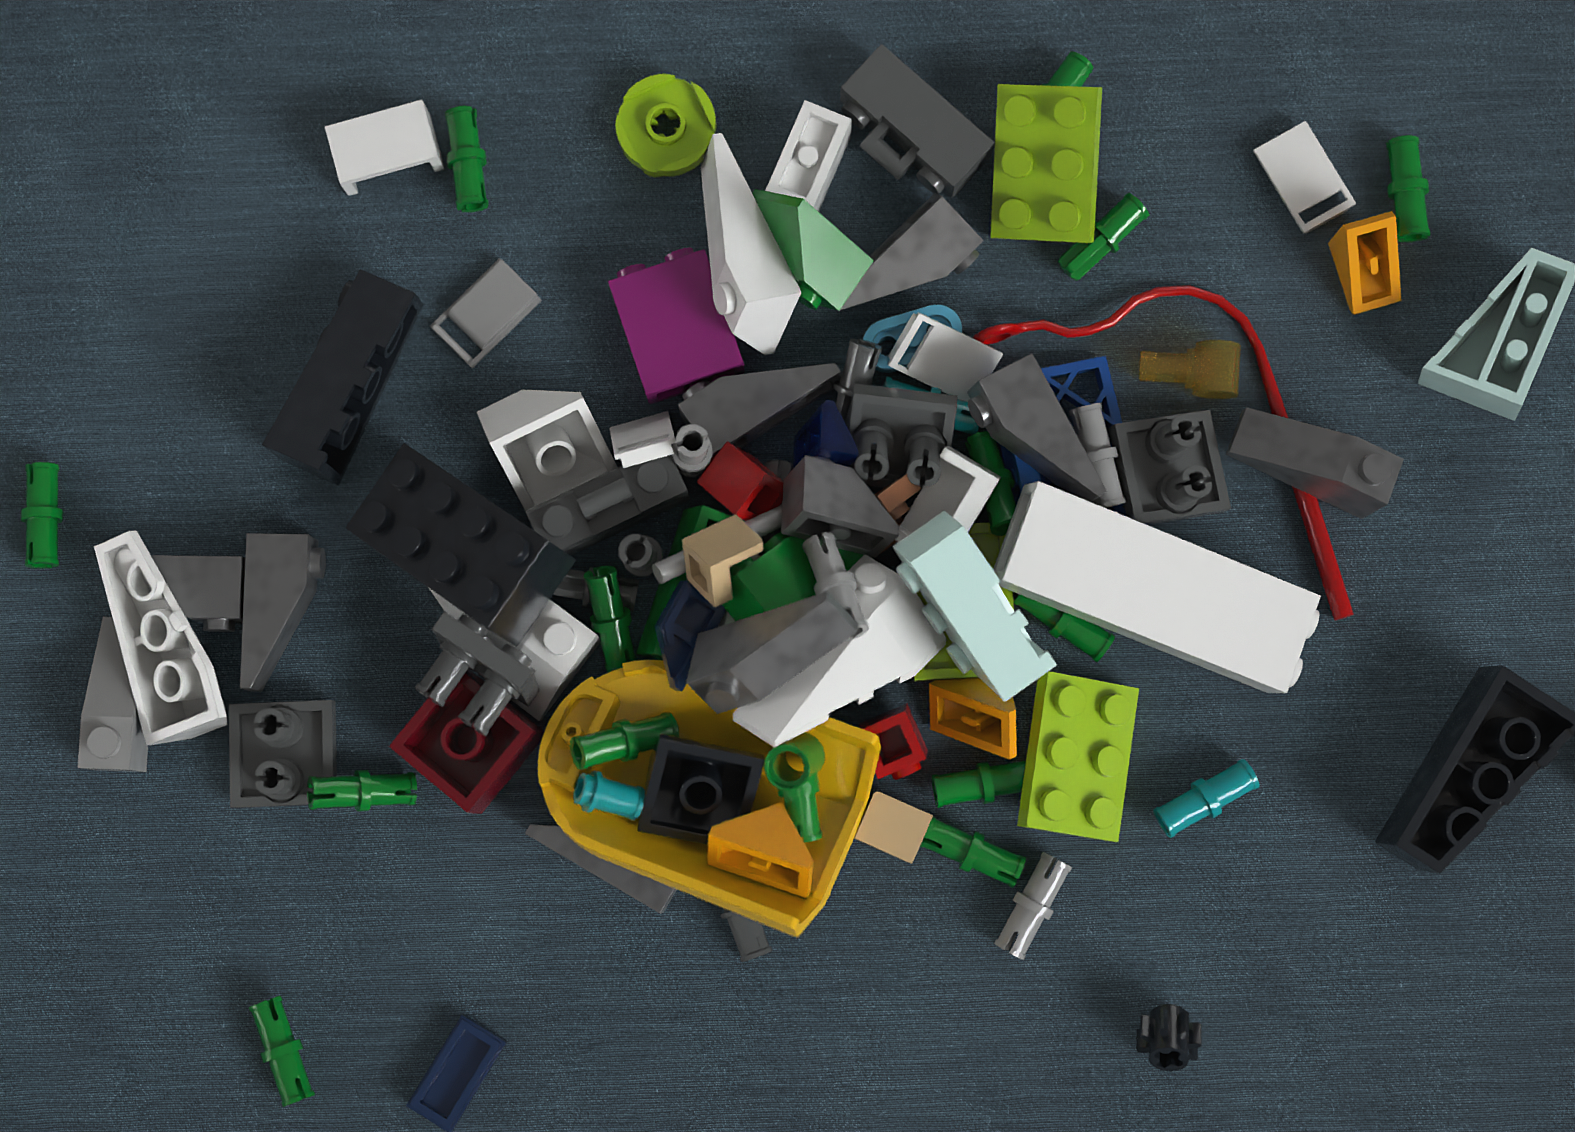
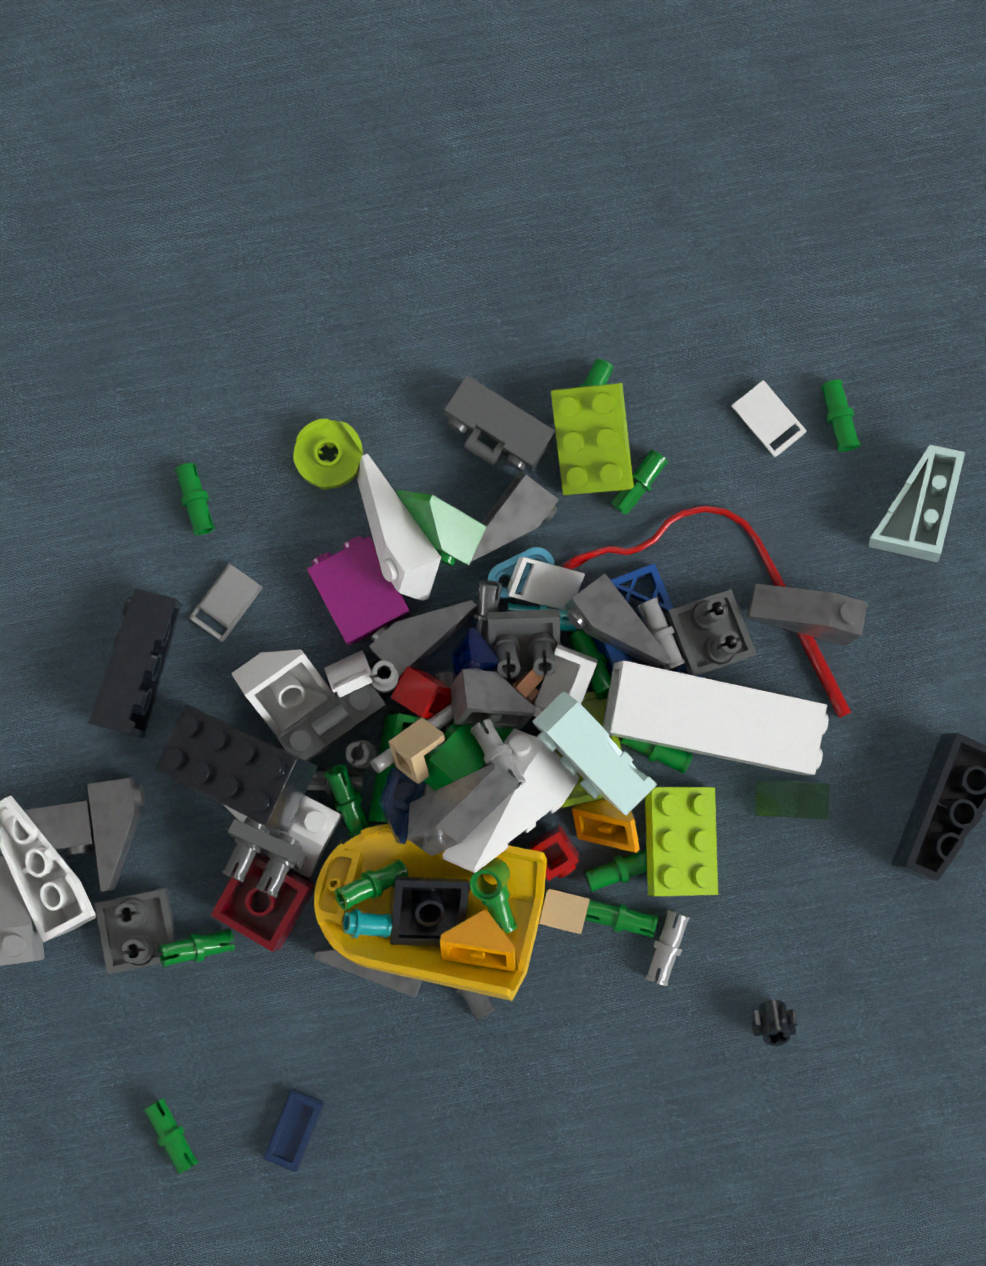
camera: 15 degrees left, 0 degrees up
(383, 144) = (136, 498): white panel -> none
(811, 154) = (431, 460): white panel -> none
(1206, 798) = (772, 854): teal pin -> none
(1207, 369) = (725, 561): clear yellow pin -> none
(1247, 725) = (792, 799): none -> clear green slope
(1368, 262) = (821, 471): light orange slope -> none

